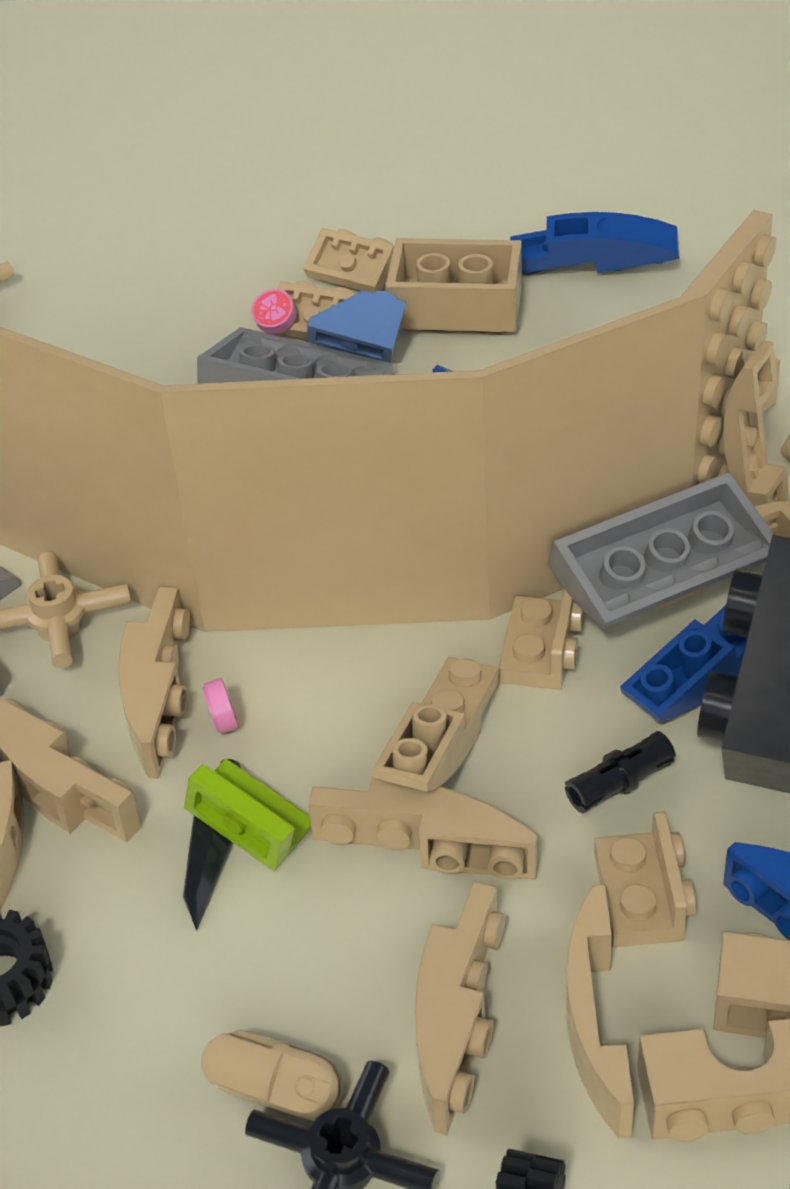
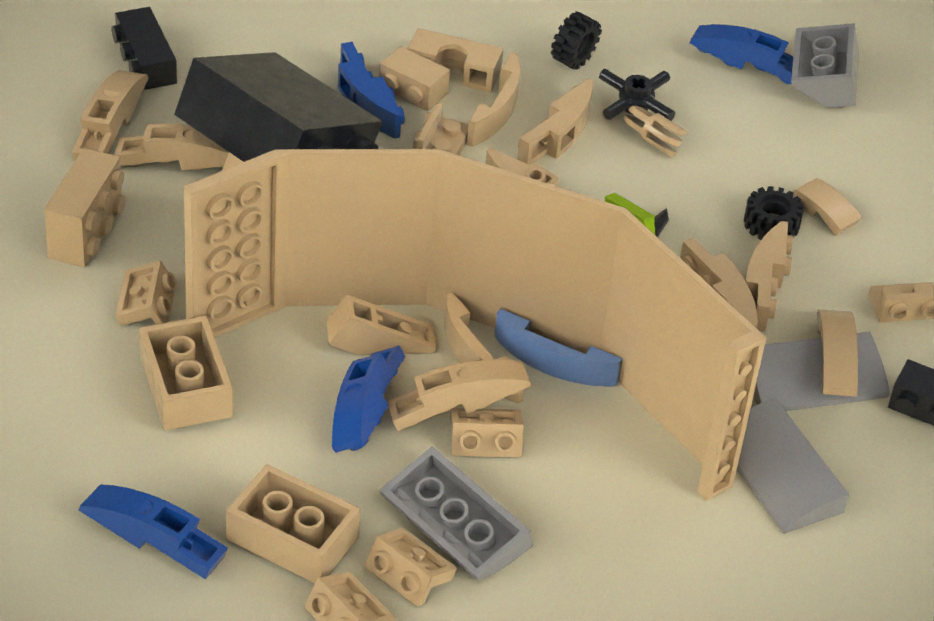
camera: 165 degrees left, 0 degrees up
(274, 311) = (448, 559): tile -> none
(360, 325) = (395, 508): medium blue slope -> none

